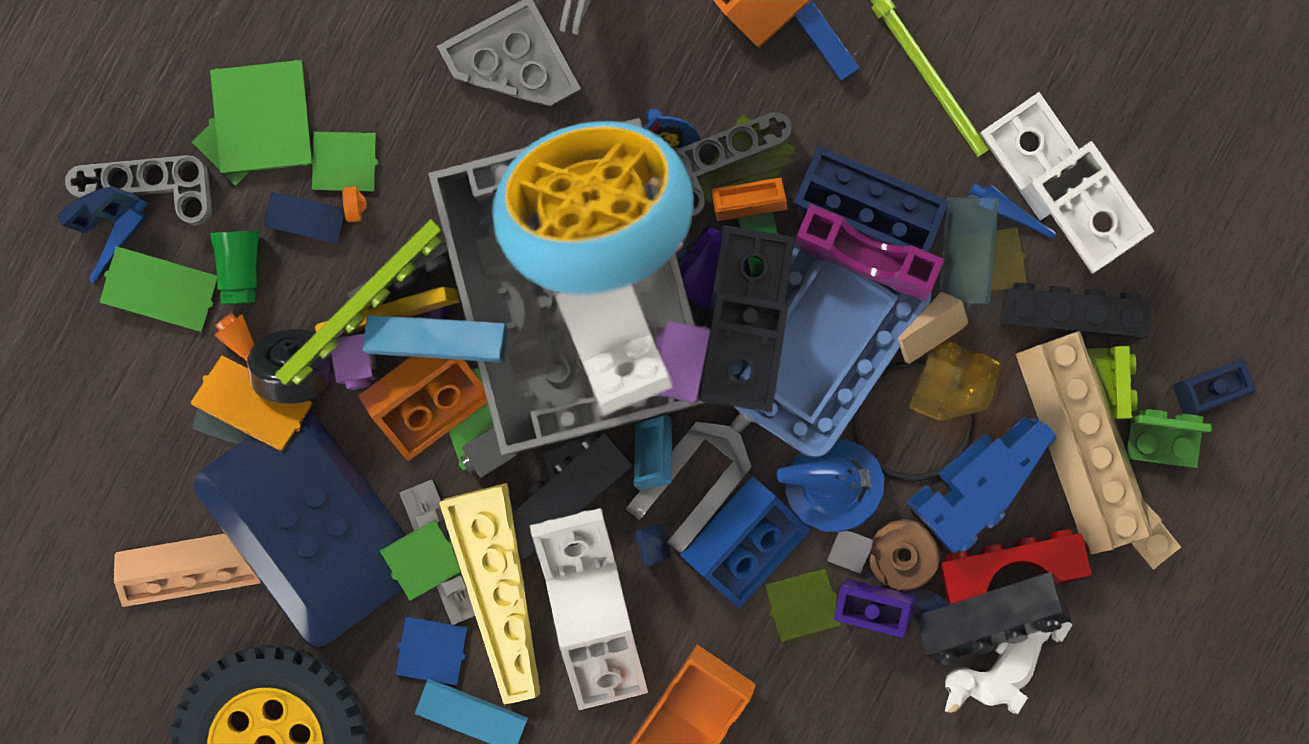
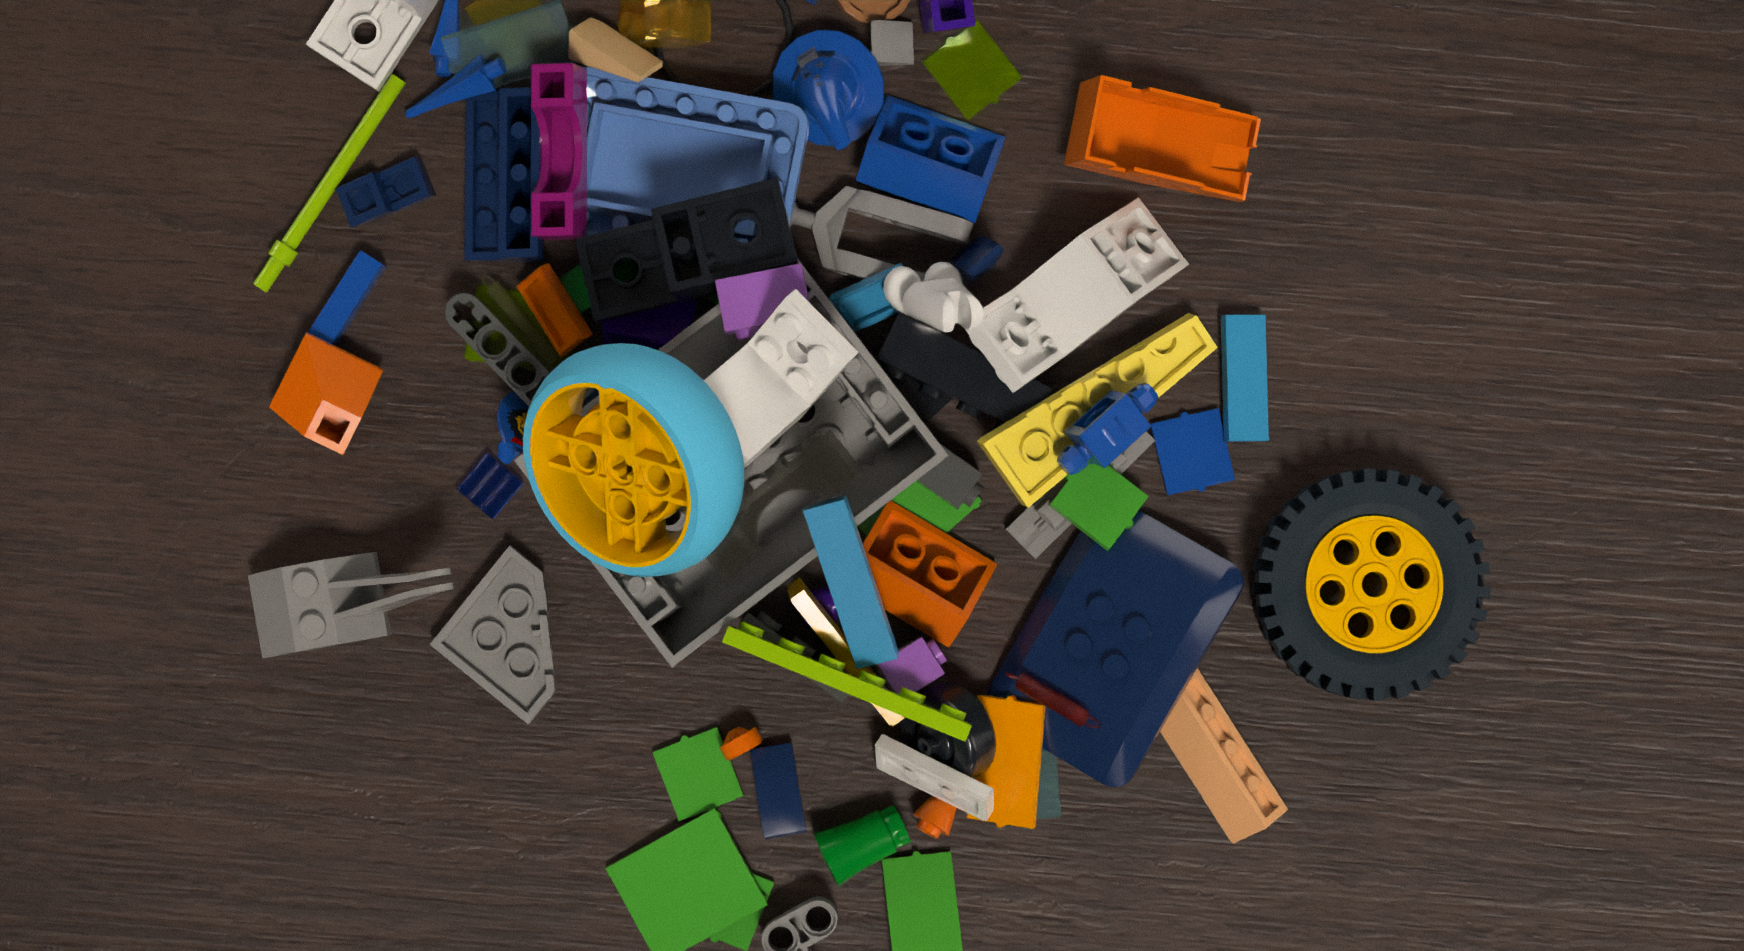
camera: 110 degrees left, 0 degrees up
(261, 341) = (934, 778): none -> white tile
(282, 458) = (1052, 699): none -> clear red piece
(473, 589) = (1107, 428): none -> blue piece
(626, 498) = (937, 300): none -> white piece
(634, 93) = (489, 486): none -> clear blue piece
(898, 106) = (385, 192): none -> dark blue slope
(955, 207) = (471, 81): none -> blue piece

